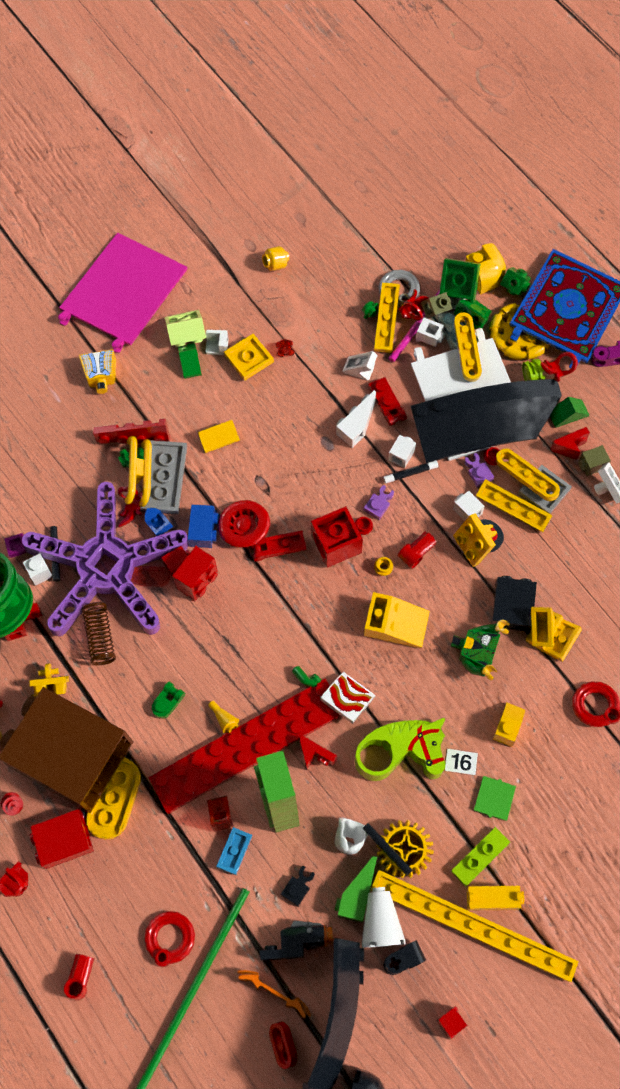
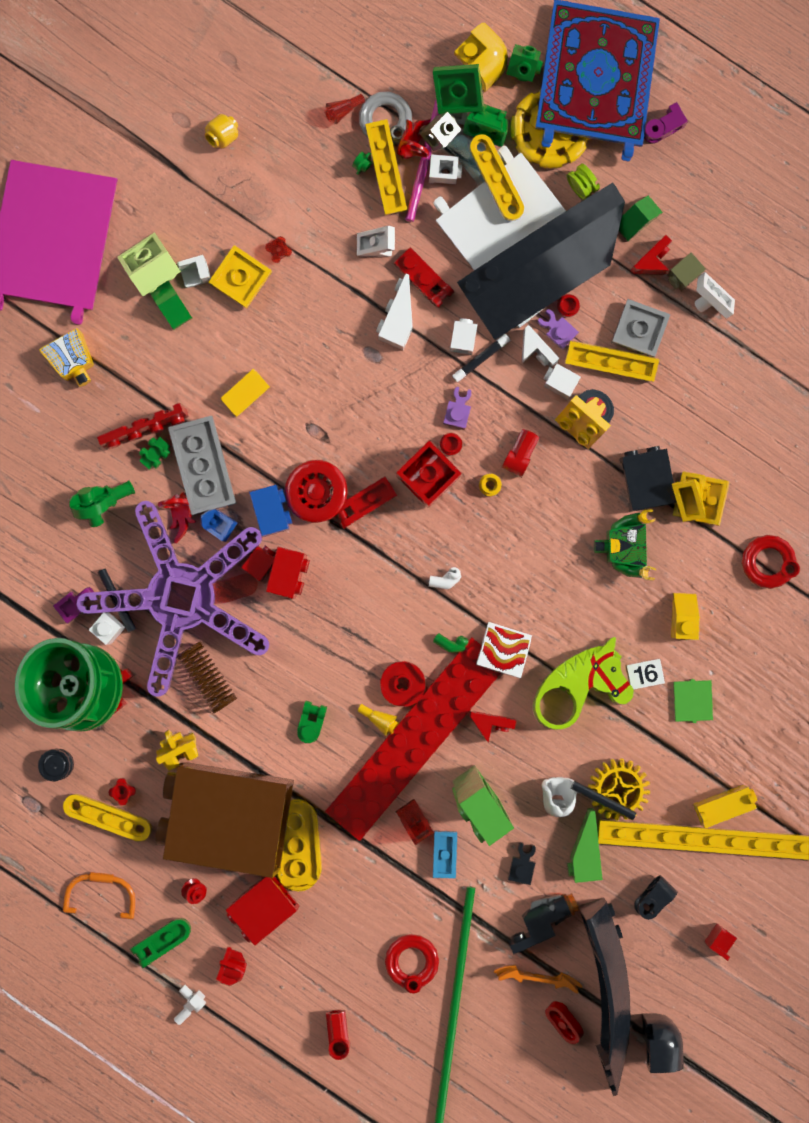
camera: 25 degrees left, 20 degrees up
(70, 471) = (93, 501): none -> green pin
(139, 469) = (173, 471): yellow piece -> none
(243, 691) = (390, 681): none -> red plate
(321, 628) = (447, 581): none -> white arm
(366, 271) = (338, 110): none -> clear red cone
(381, 921) = (622, 874): white cone -> none
(396, 621) = (527, 546): yellow slope -> none
(457, 476) = (533, 343): none -> white slope
(480, 856) = (697, 767): lime plate -> none
(528, 474) = (617, 319): yellow plate -> none
(554, 369) = (609, 170): red piece -> none

